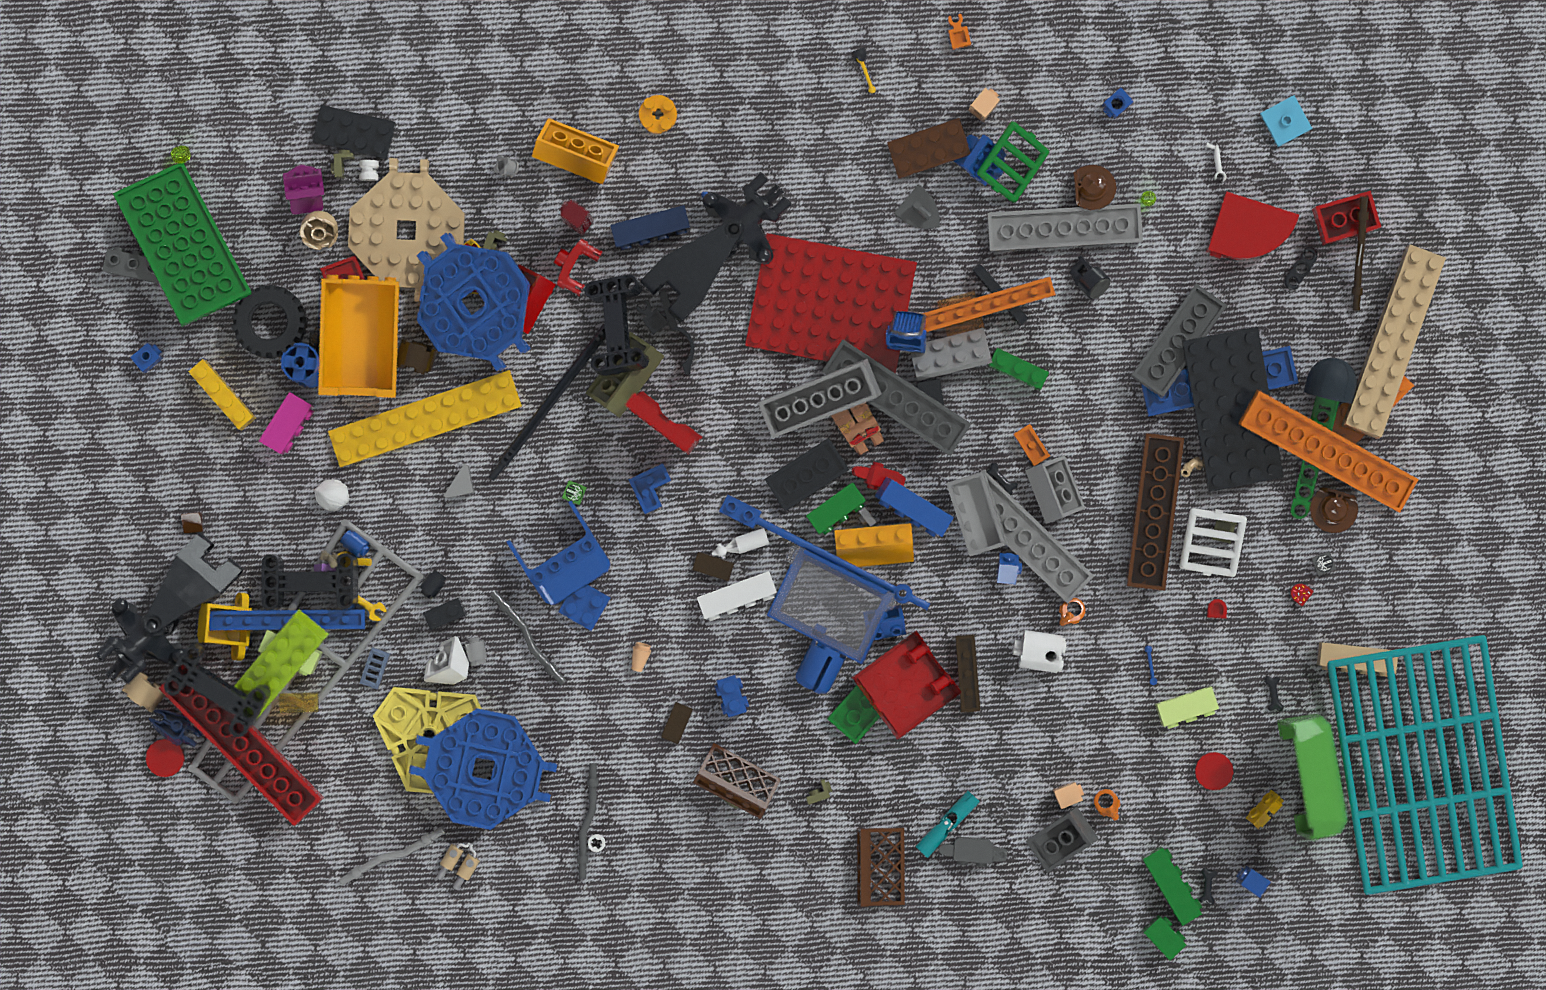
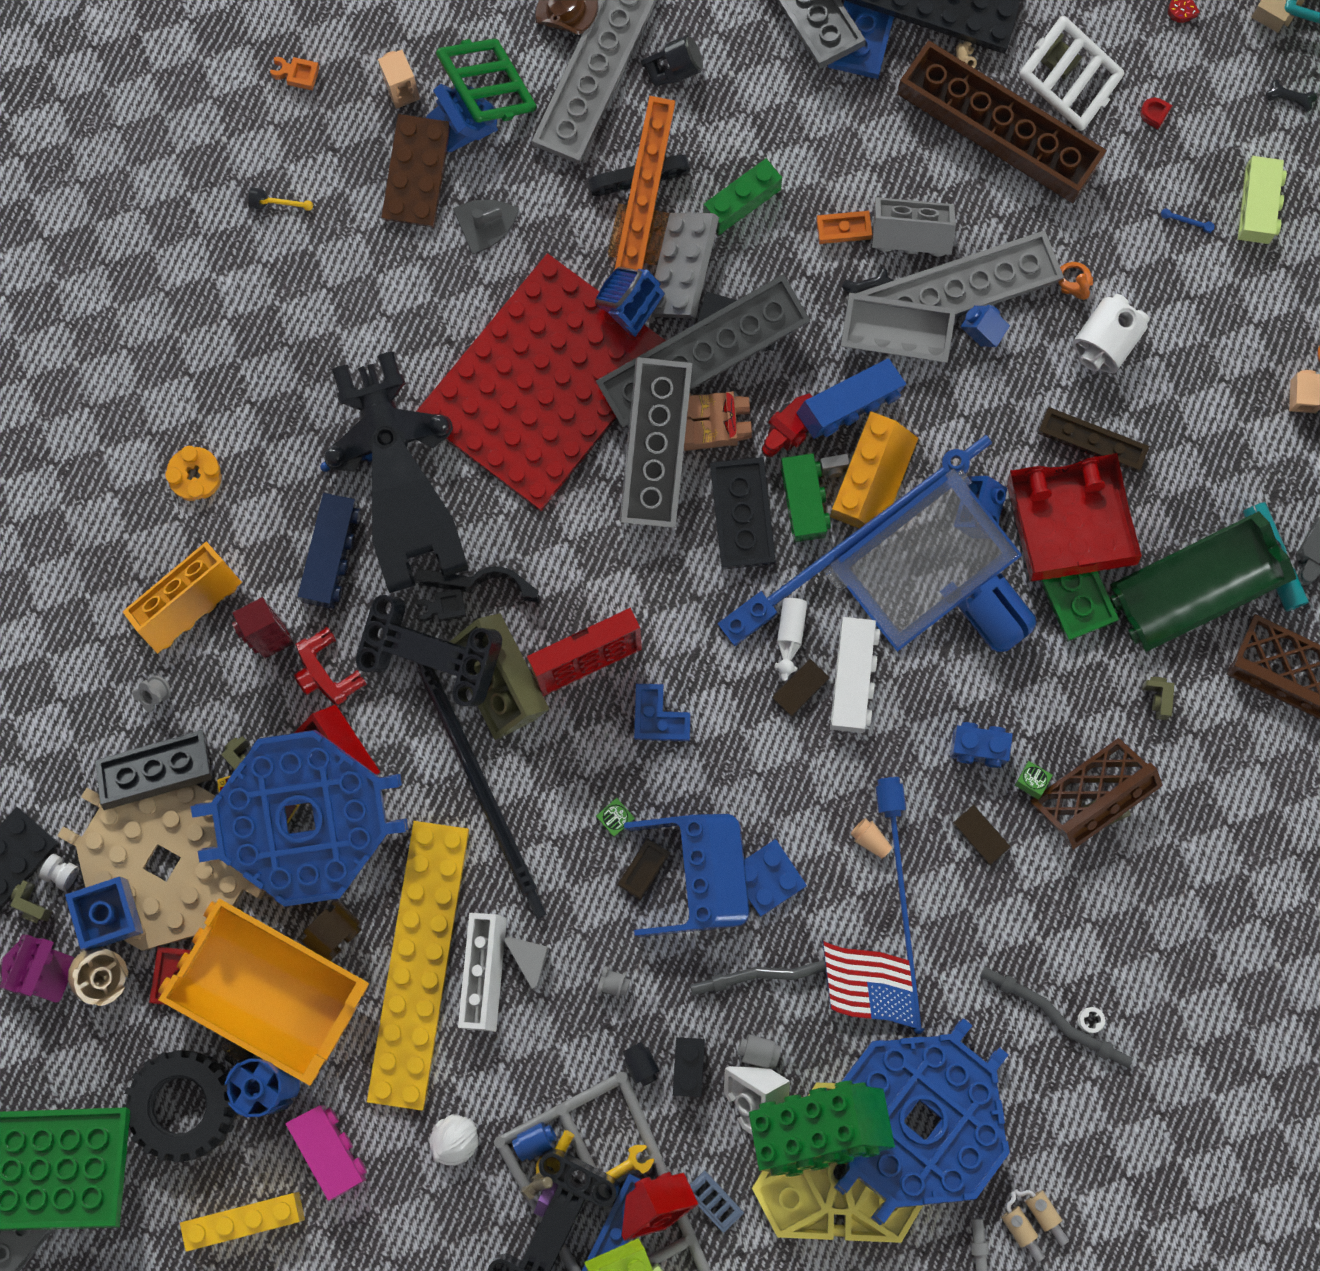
camera: 60 degrees left, 10 degrees down
(354, 635) = (656, 1204): none -> red slope
(356, 215) = (104, 913): none -> blue brick
(438, 460) = (482, 972): none -> white brick
(444, 710) = (821, 1129): none -> green brick
(459, 194) = (153, 770): none -> black plate
(472, 543) = (613, 983): none -> light grey brick
(551, 526) = (643, 869): none -> dark brown tile
(553, 701) = (872, 981): none -> flag
(727, 738) = (1033, 780): none -> bright green tile
(904, 784) = (1202, 581): none -> dark green cylinder

